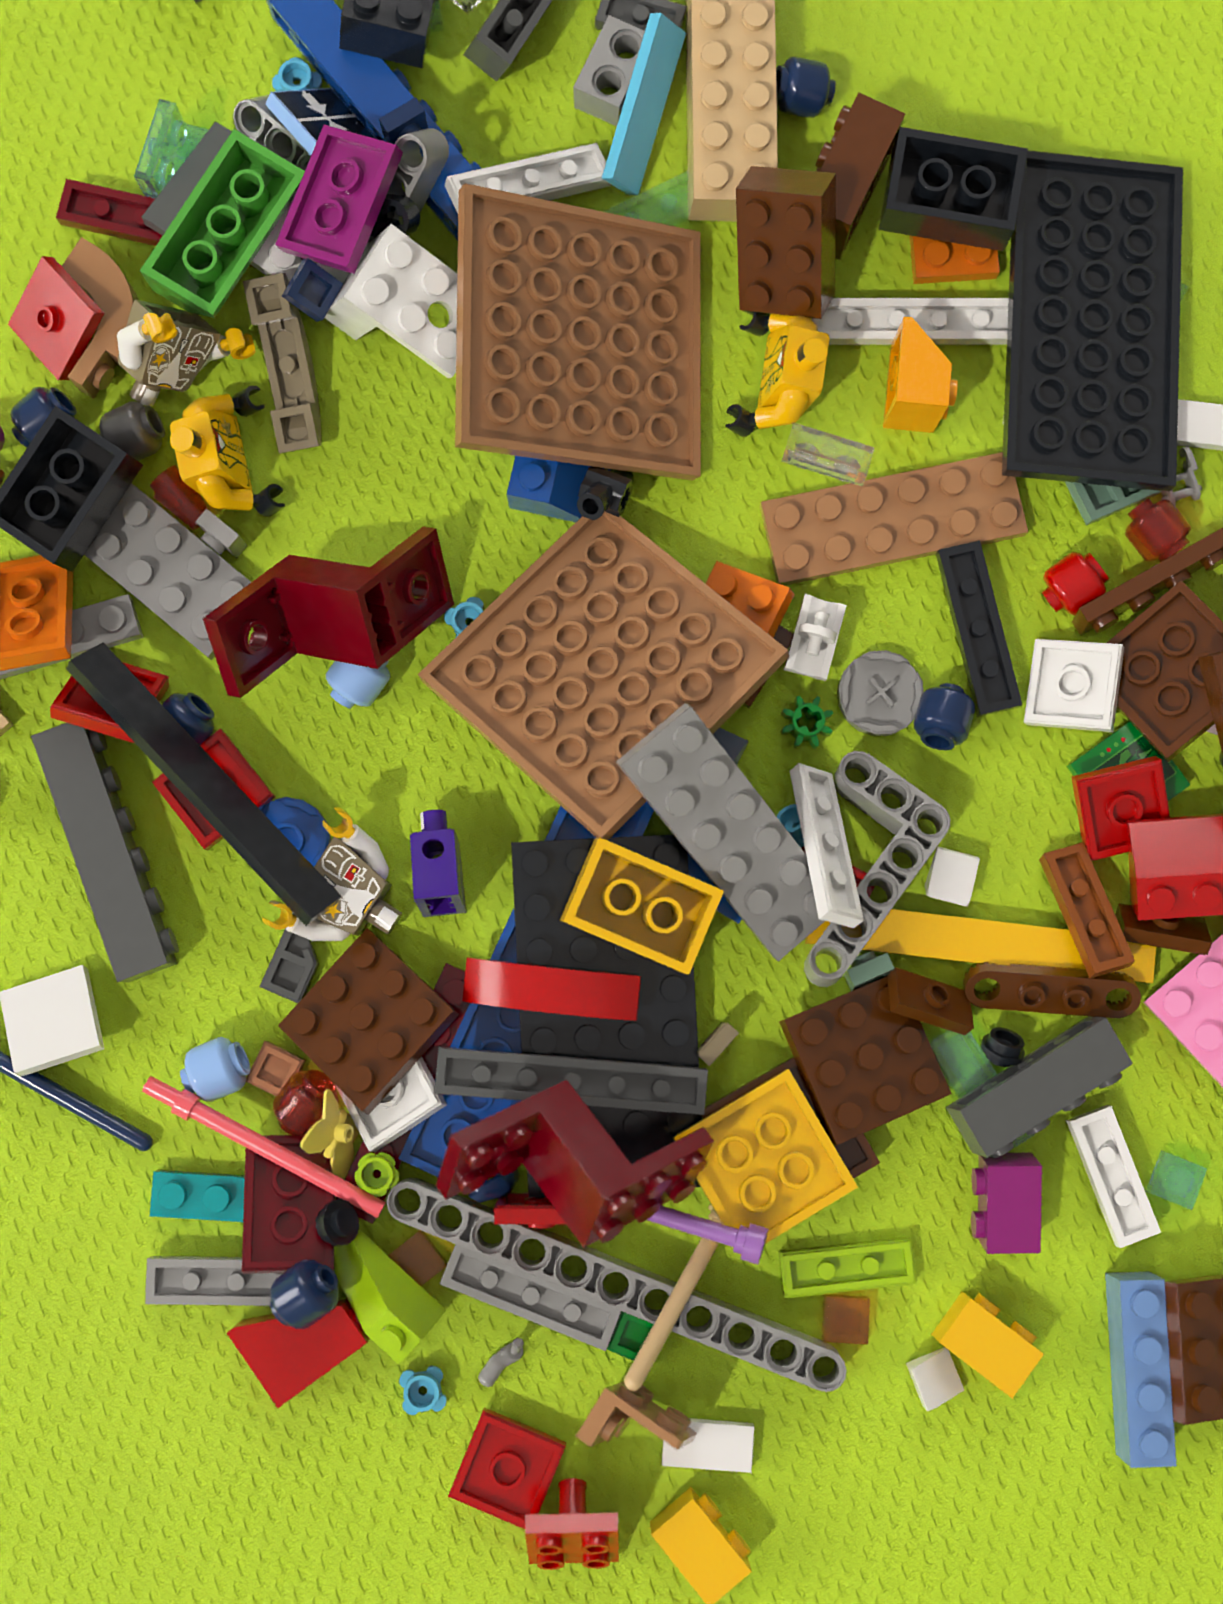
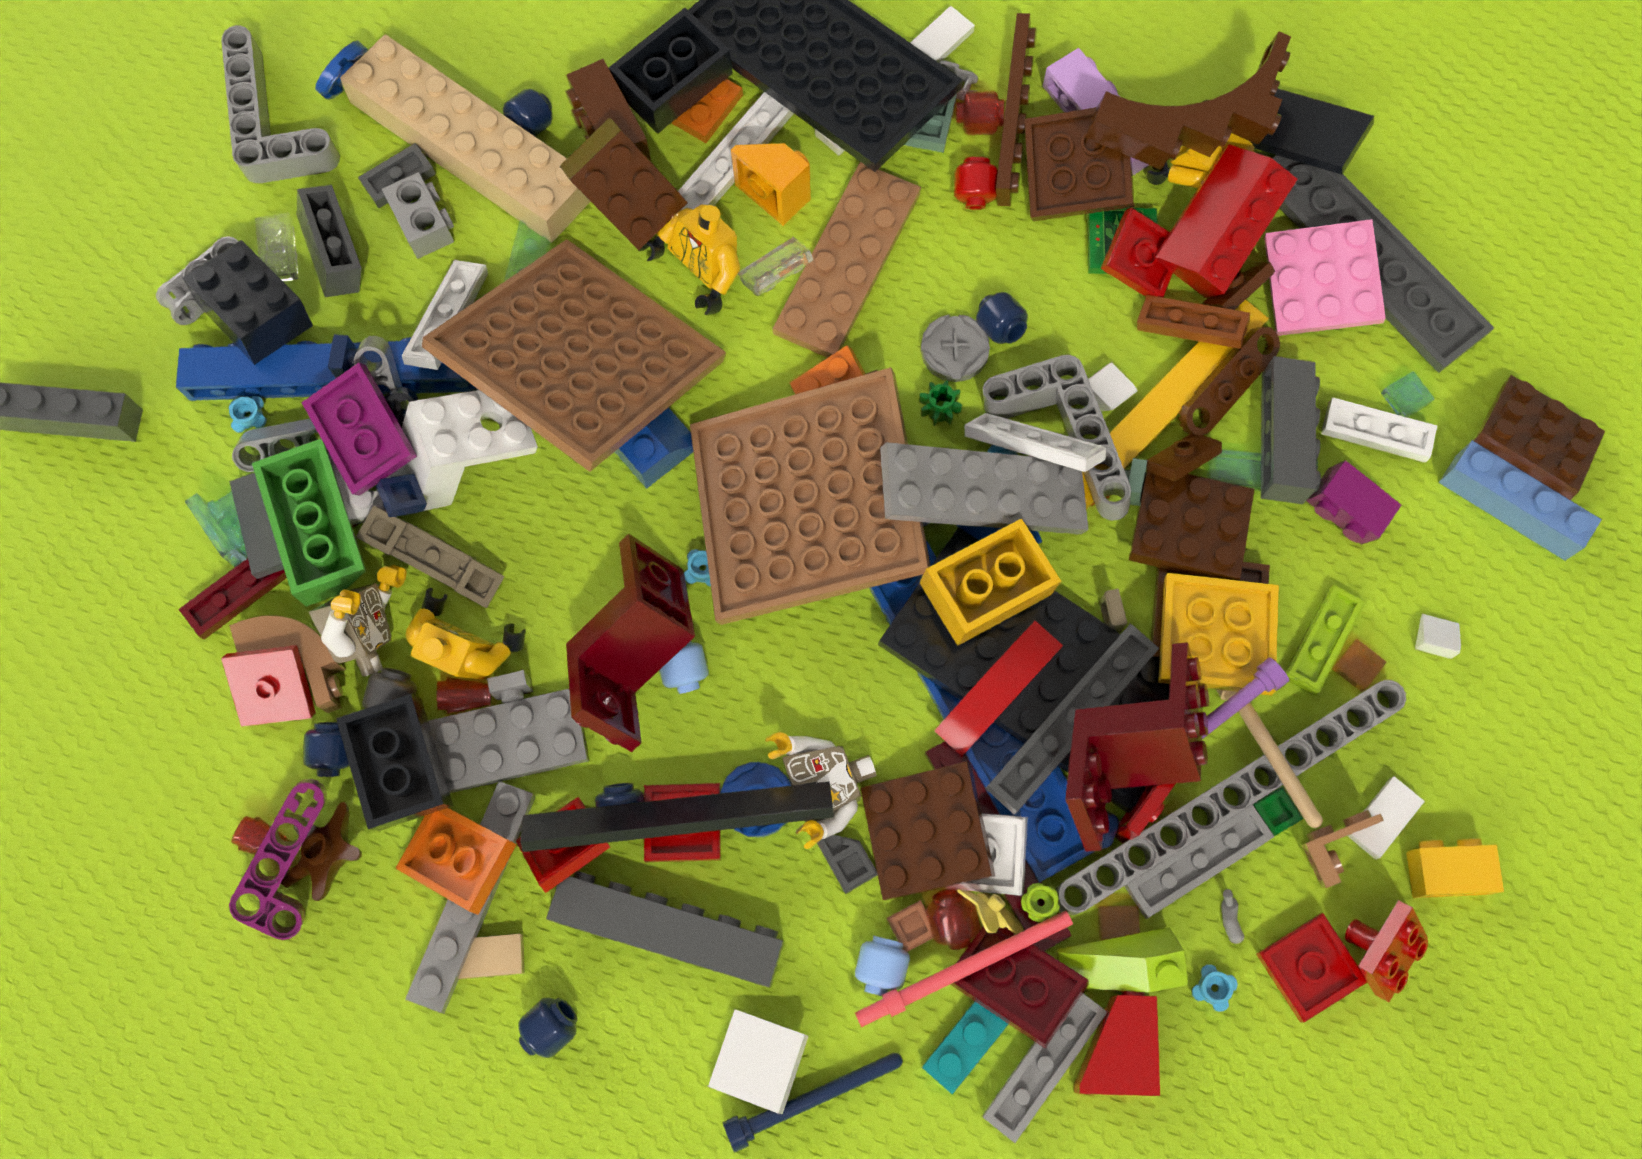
camera: 50 degrees left, 10 degrees down
(304, 1294) = (1093, 1010): dark blue head -> none
(309, 109) = (281, 416): tile -> none
(337, 1223) = (1057, 953): black plate -> none
(437, 881) = (857, 705): dark purple torso -> none
(604, 492) = (690, 414): black axle -> none
(644, 104) = (457, 211): medium azure tile -> none
(815, 637) = (887, 351): white hips -> none
(978, 628) = (959, 258): black plate -> none
(987, 1344) = (1438, 583): yellow brick -> none
(1003, 1047) = (1246, 435): black plate -> none
(1074, 685) = (1041, 228): white tile -> none

